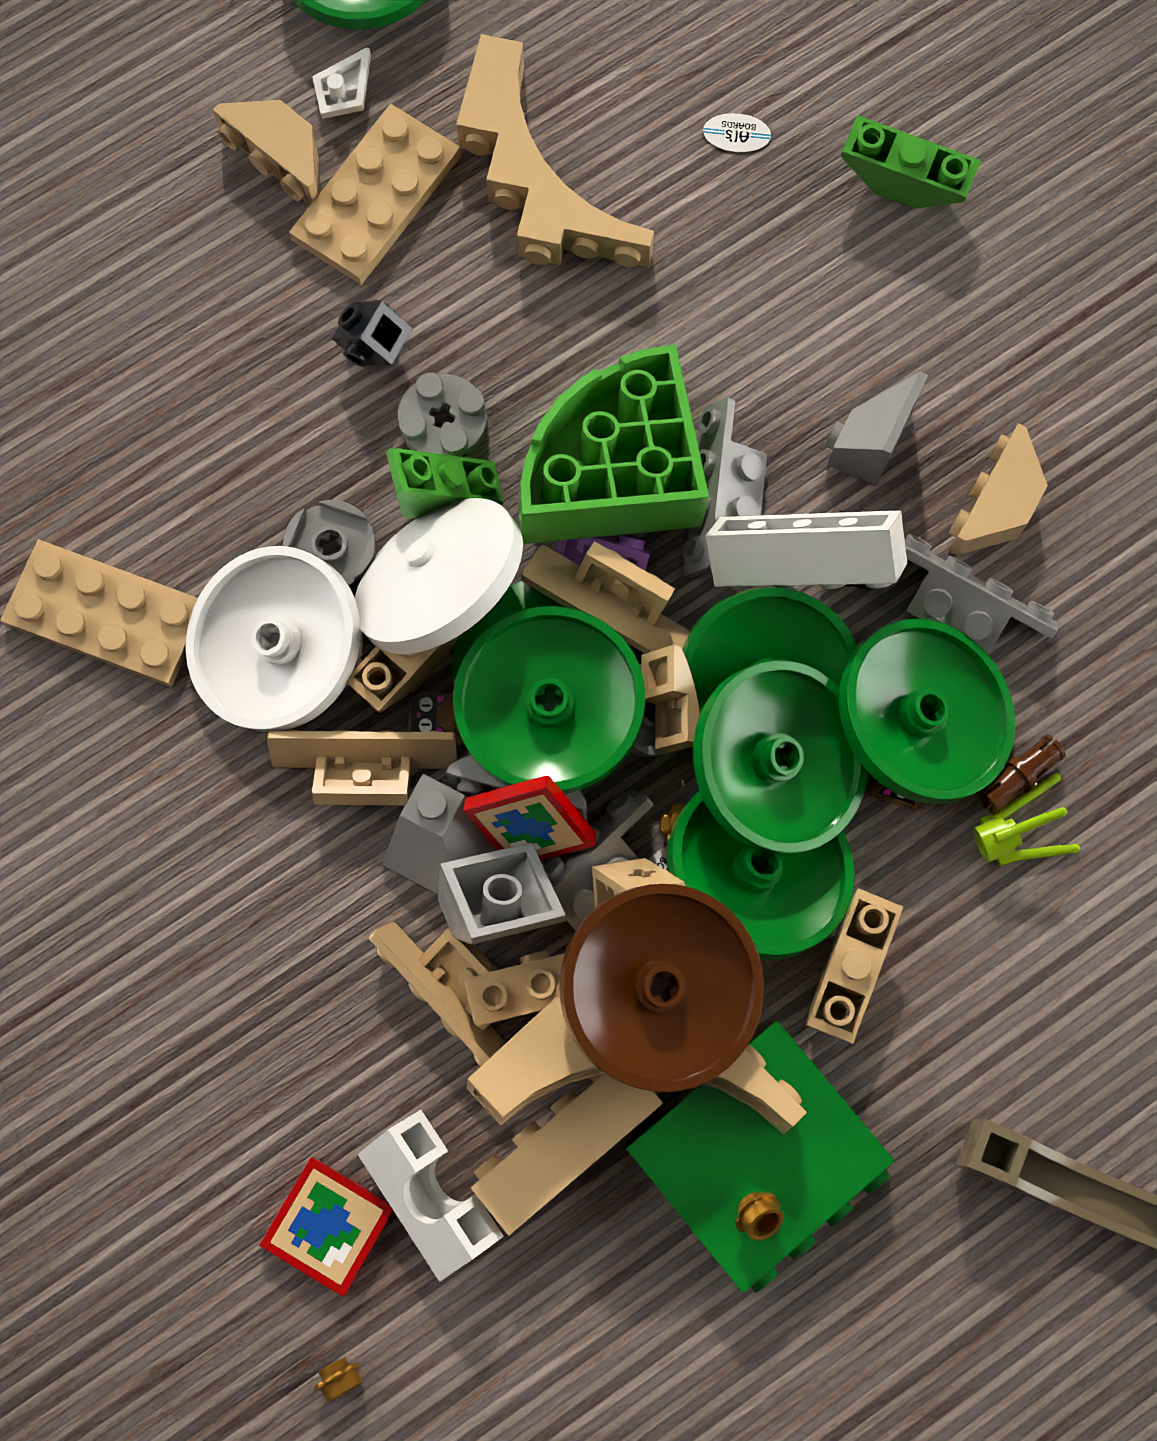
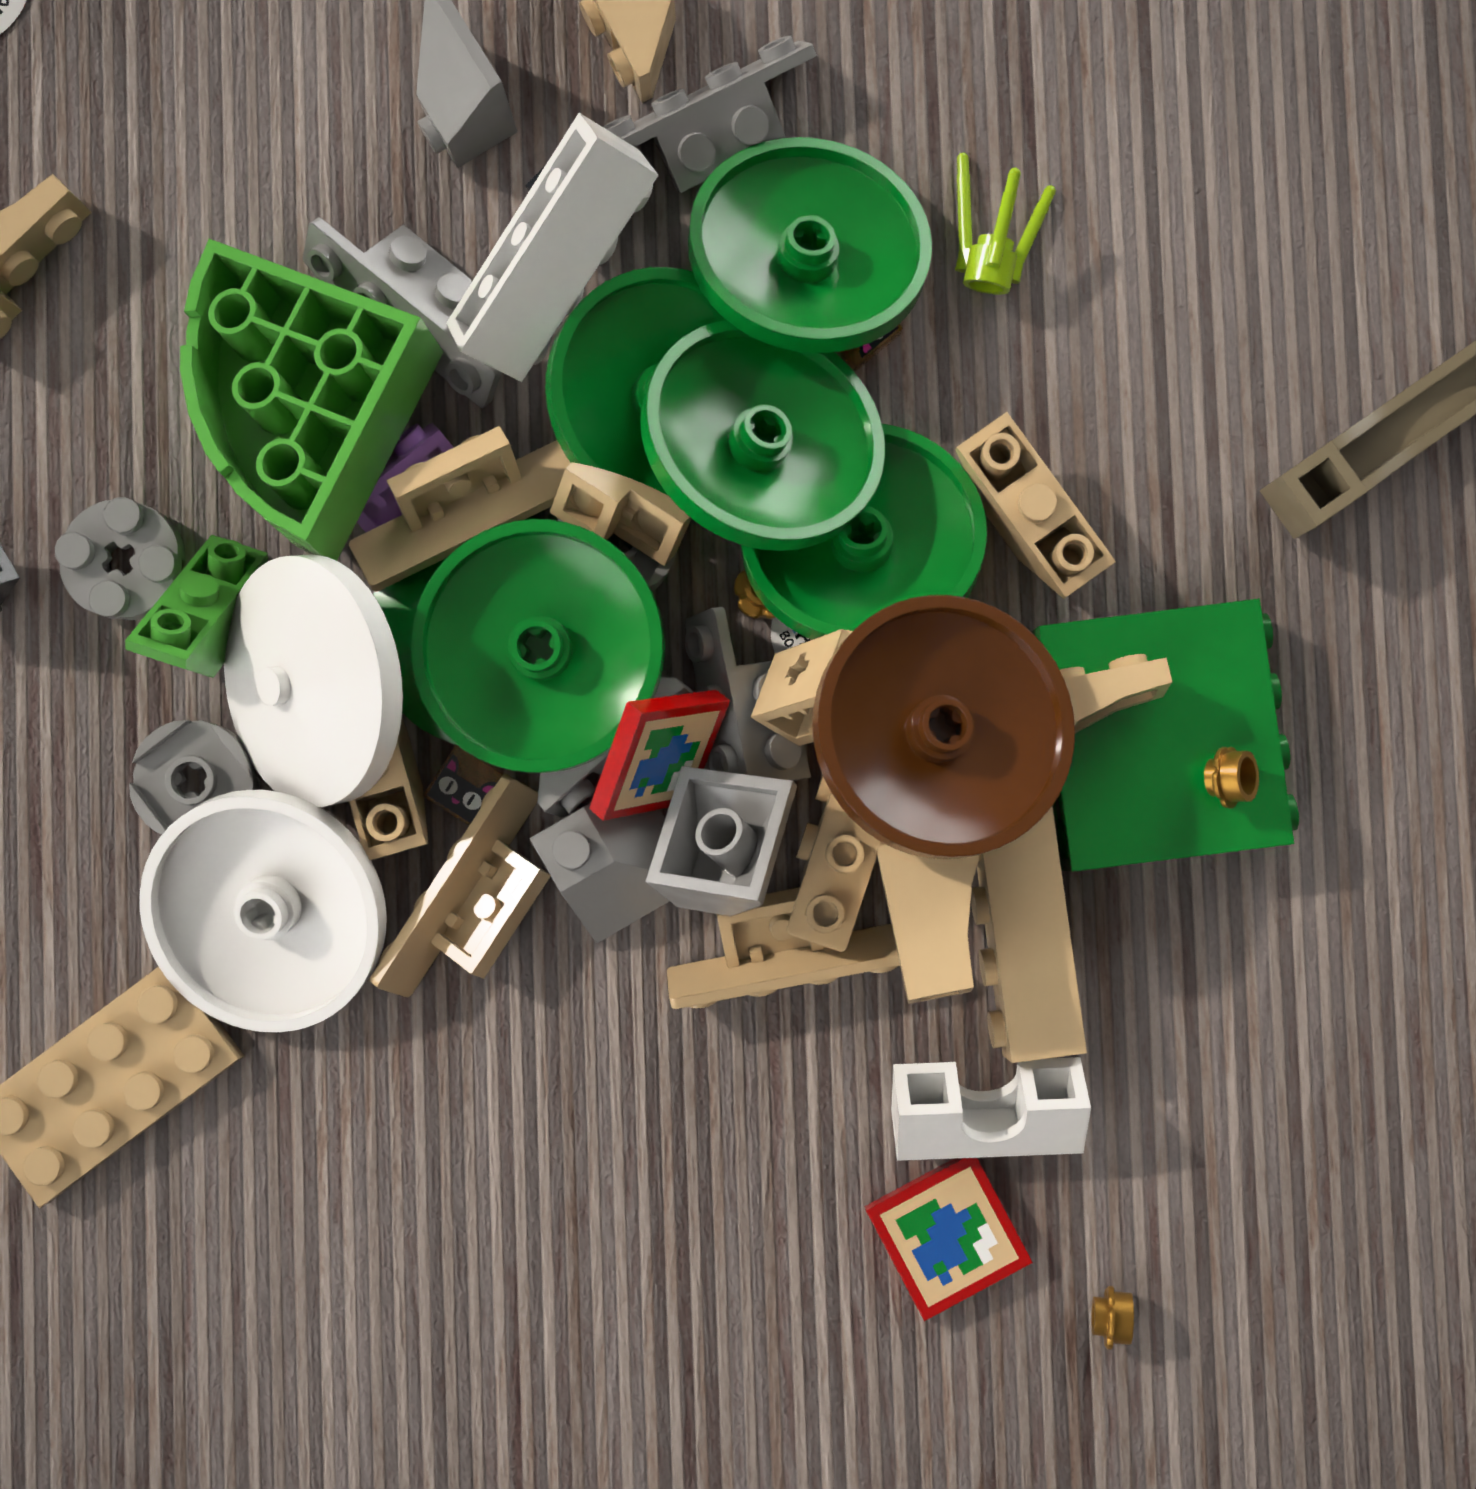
camera: 55 degrees left, 10 degrees up
(1021, 774) = (938, 190): reddish brown pin -> none

